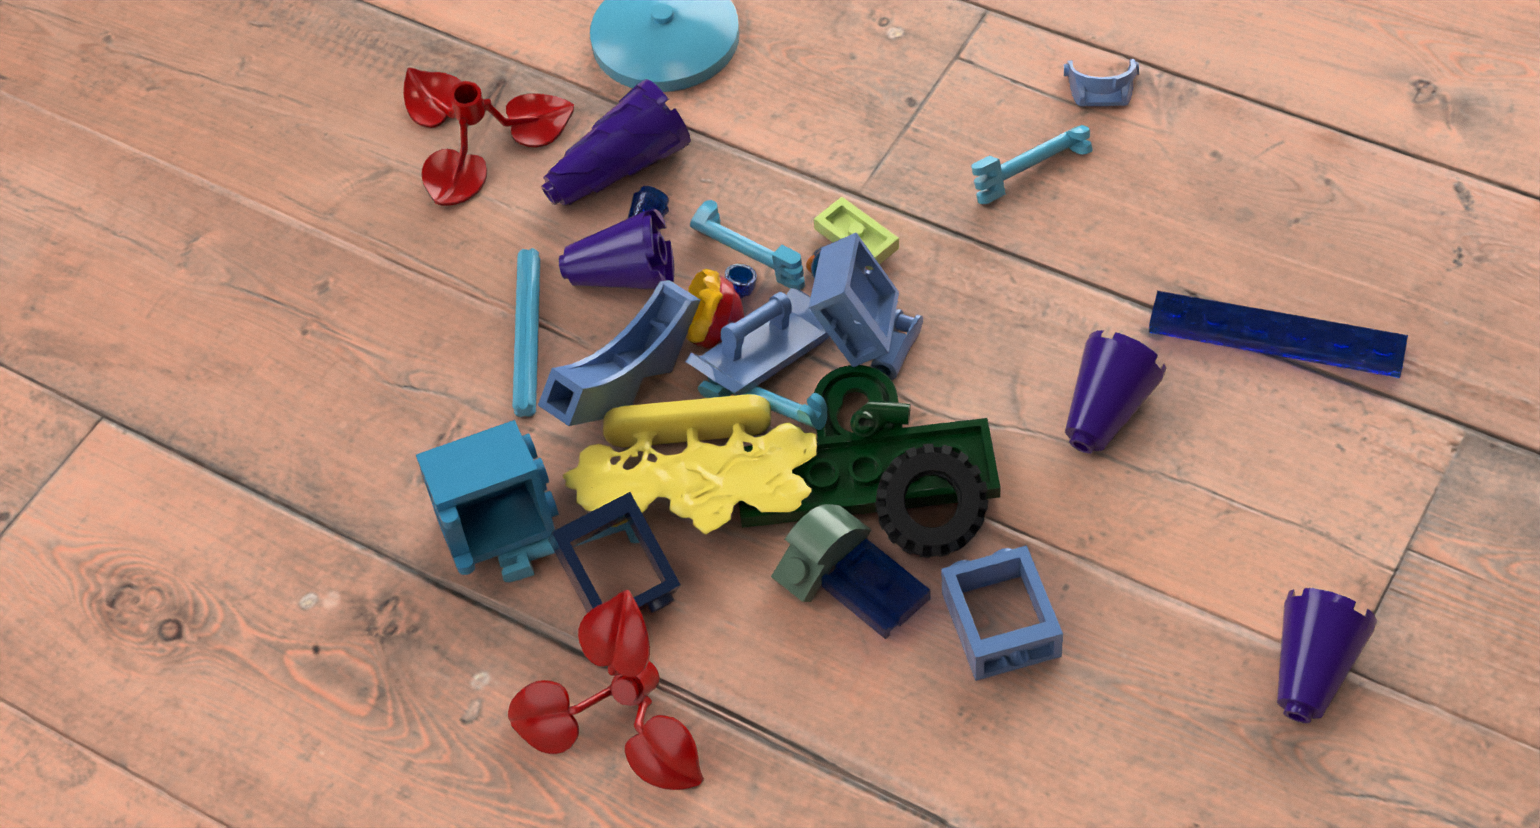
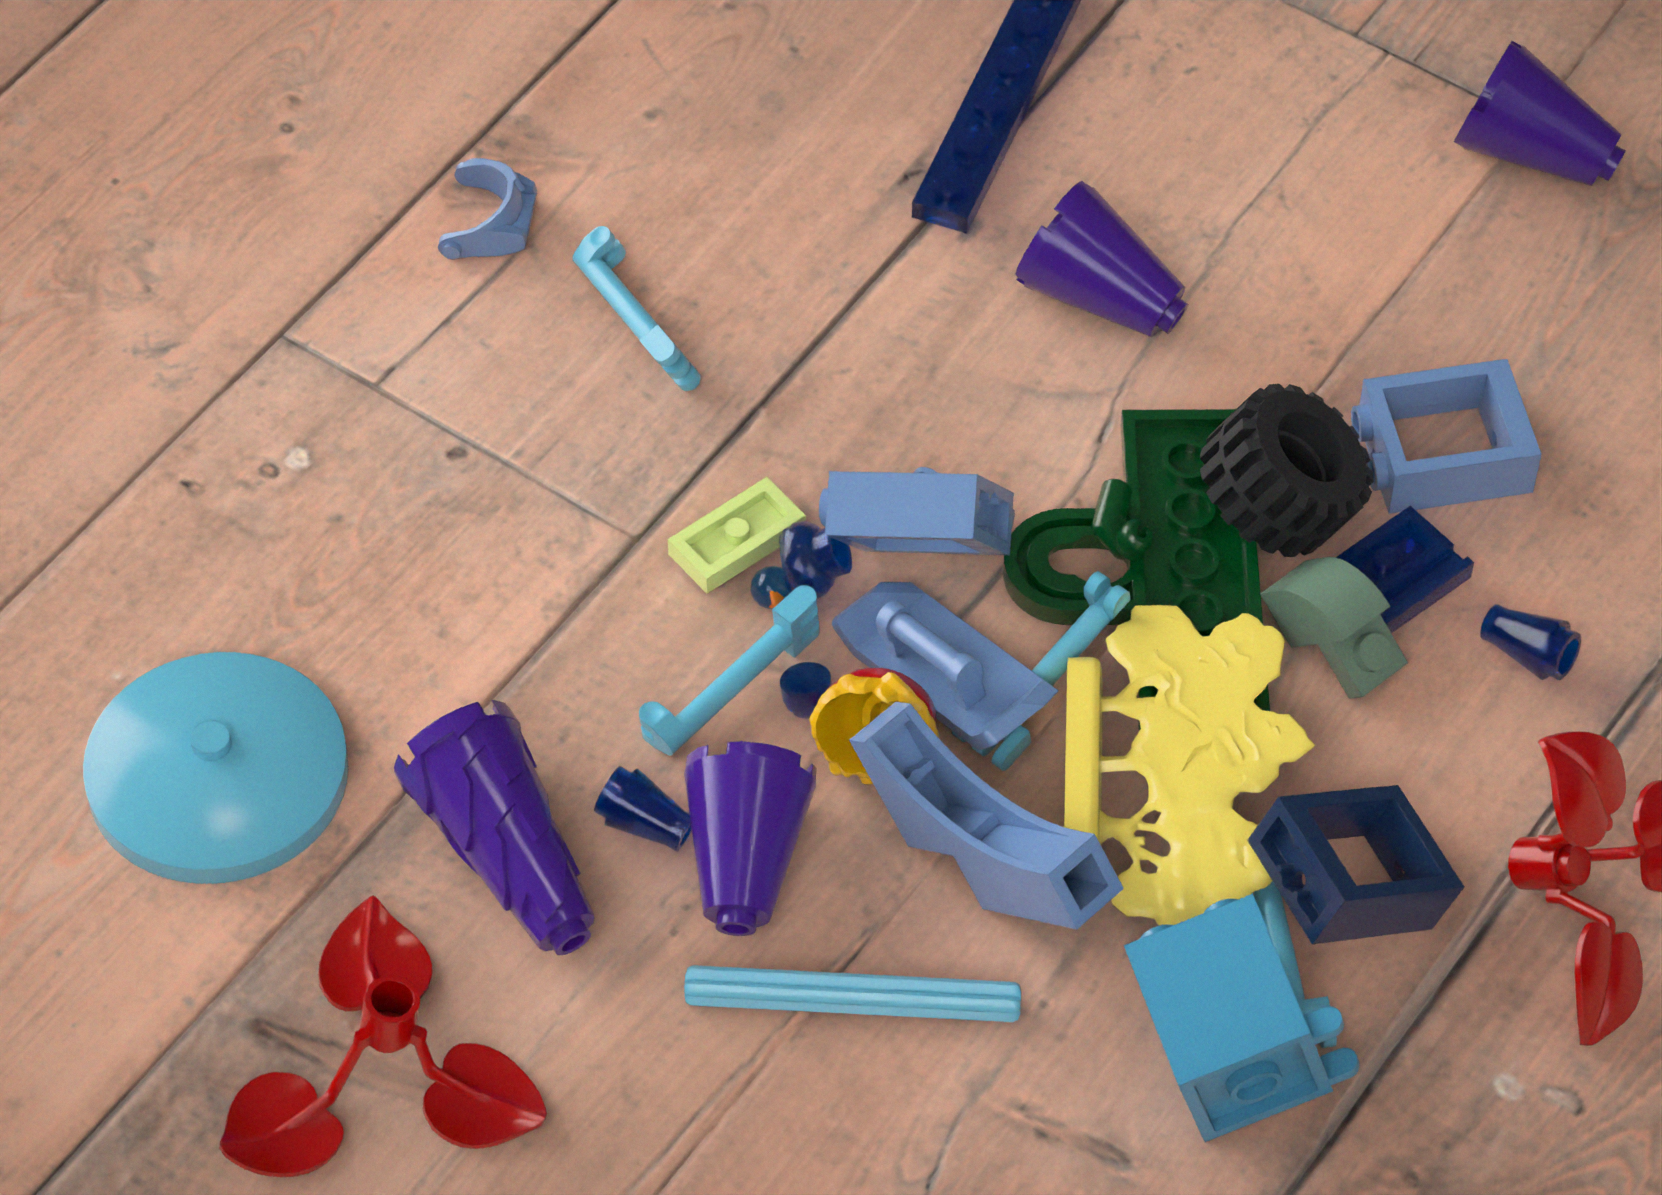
camera: 90 degrees left, 0 degrees up
(825, 675) = (1535, 641): none -> clear blue cone

